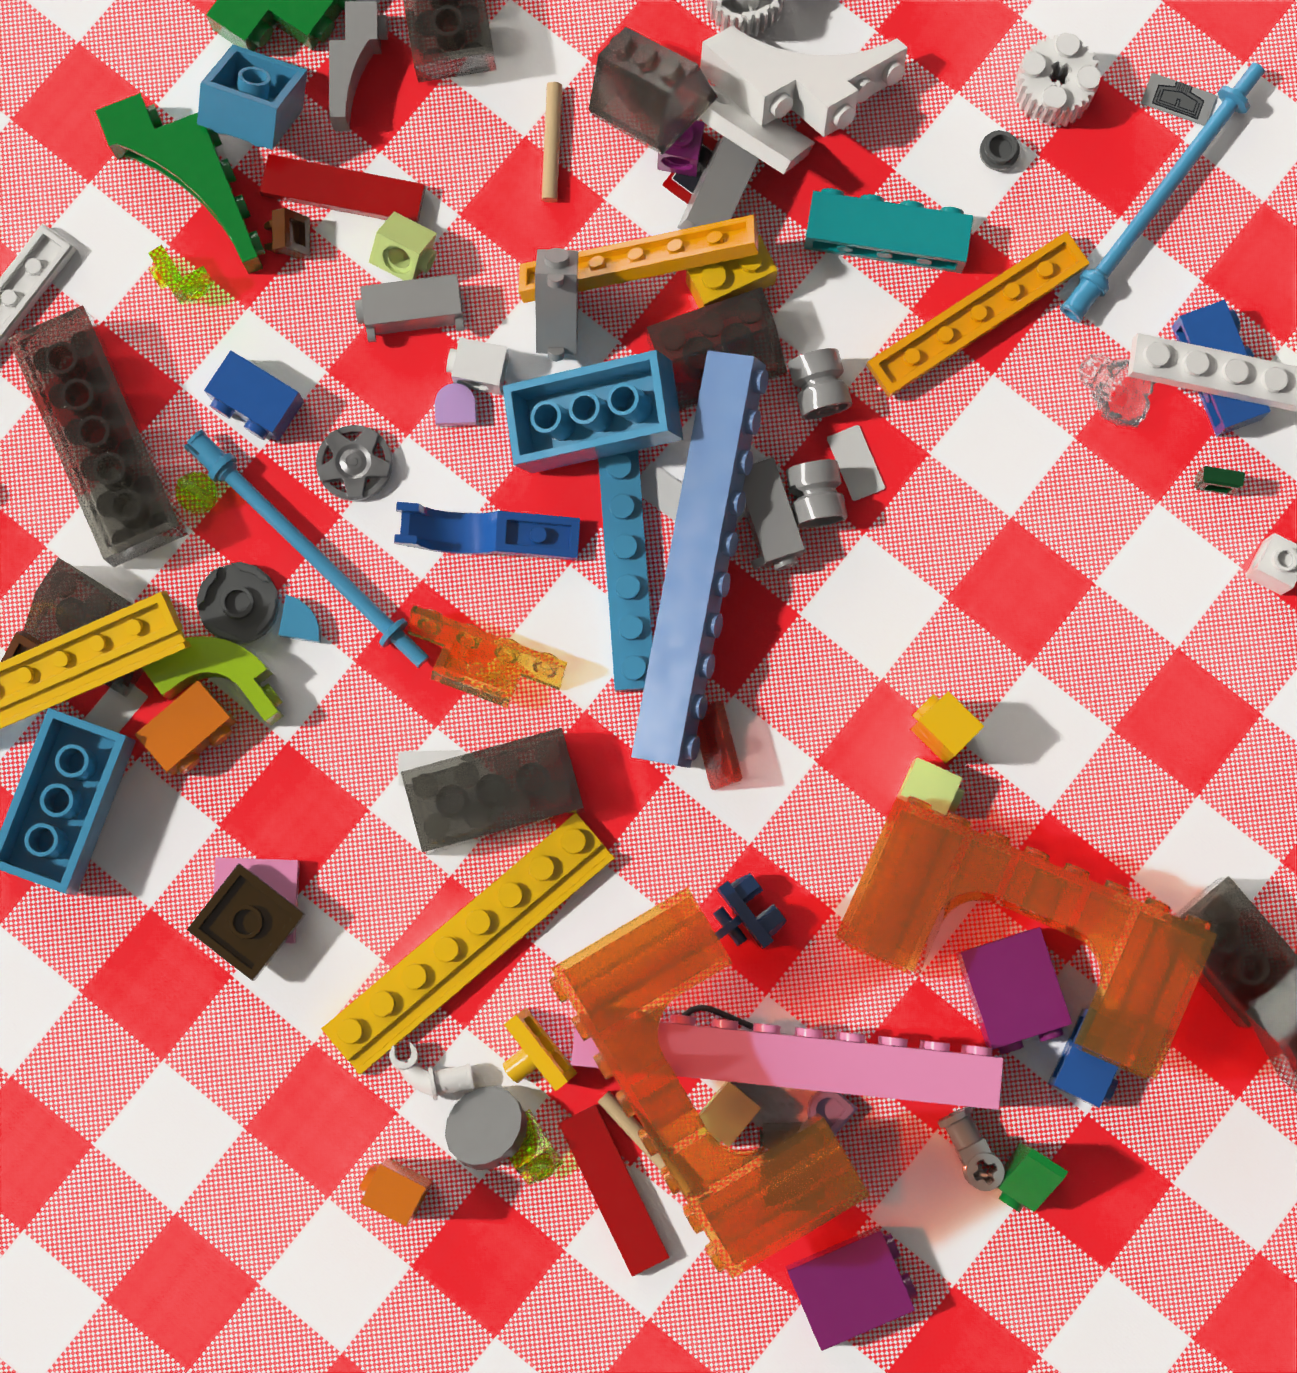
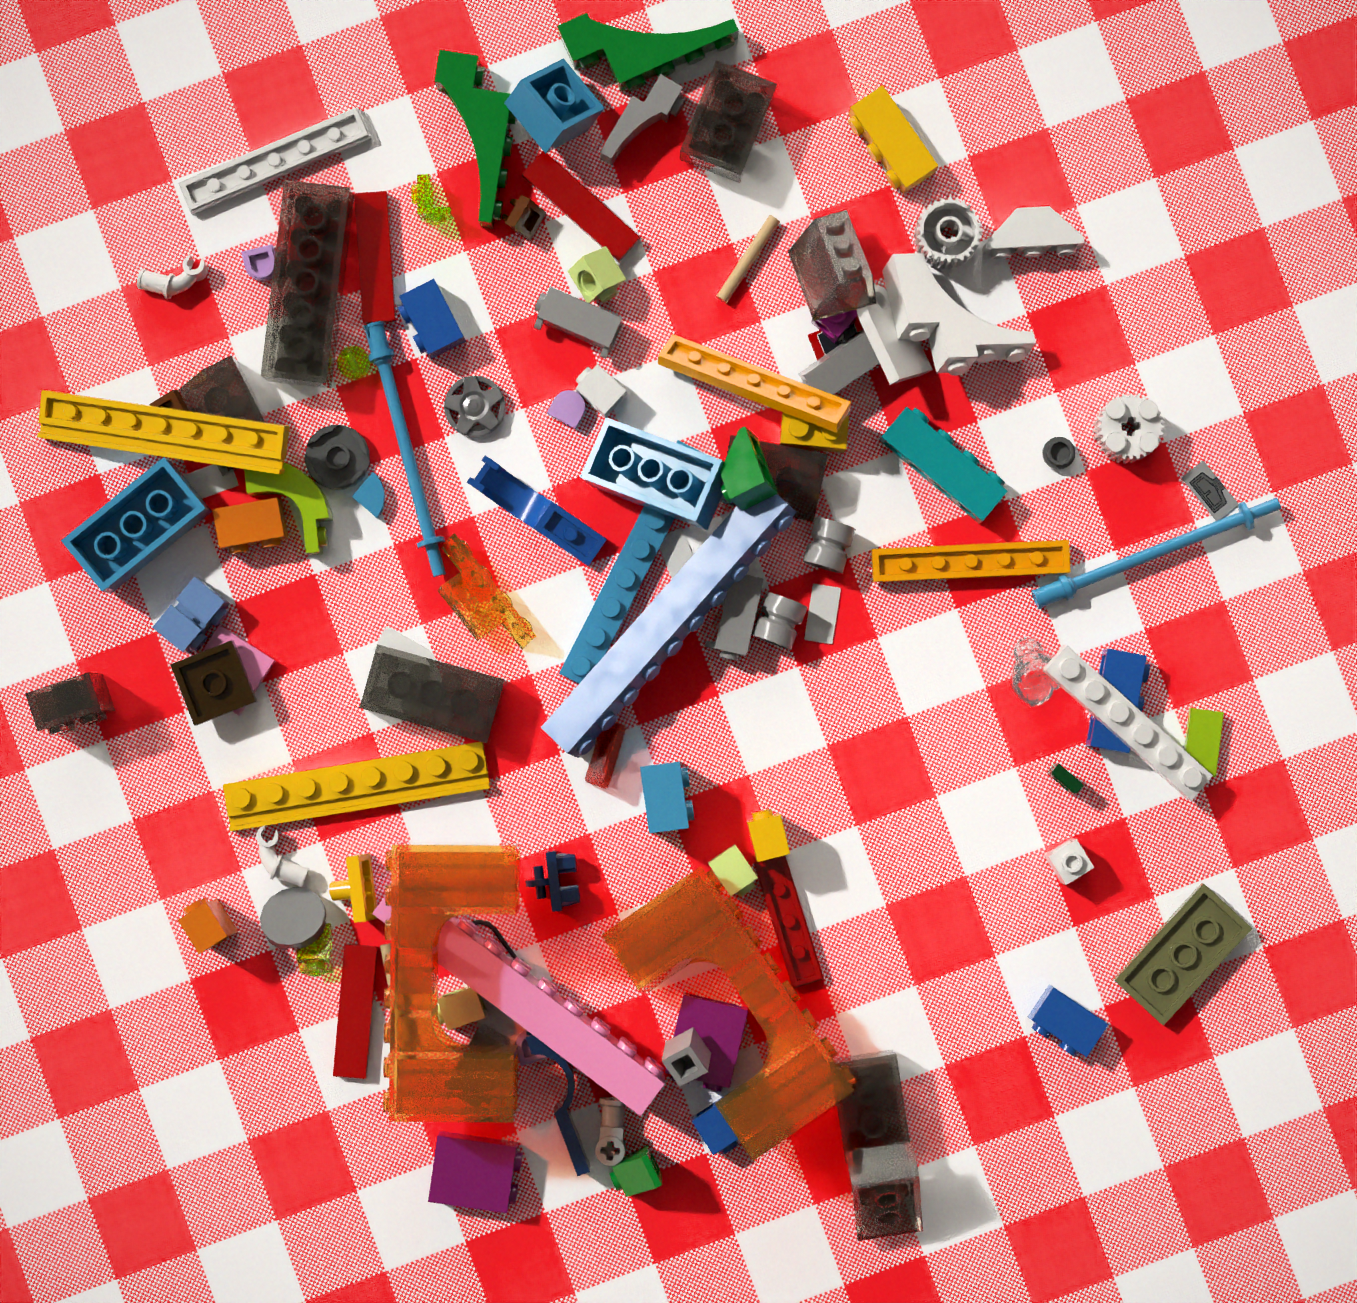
camera: 35 degrees right, 5 degrees up
(33, 447) = (260, 262): none -> lavender tile
(100, 1038) = (70, 702): none -> clear smoke brick
(153, 368) = (375, 257): none -> red tile
(181, 864) = (193, 616): none -> medium blue piece
(556, 302) = (678, 381): light grey brick -> none
(689, 351) = (746, 472): none -> green slope
(811, 749) = (665, 797): none -> dark azure brick
(840, 1103) = (561, 1109): none -> dark blue piece
(1008, 1014) = (686, 1056): none -> light grey brick
(1020, 806) = (788, 921): none -> red tile

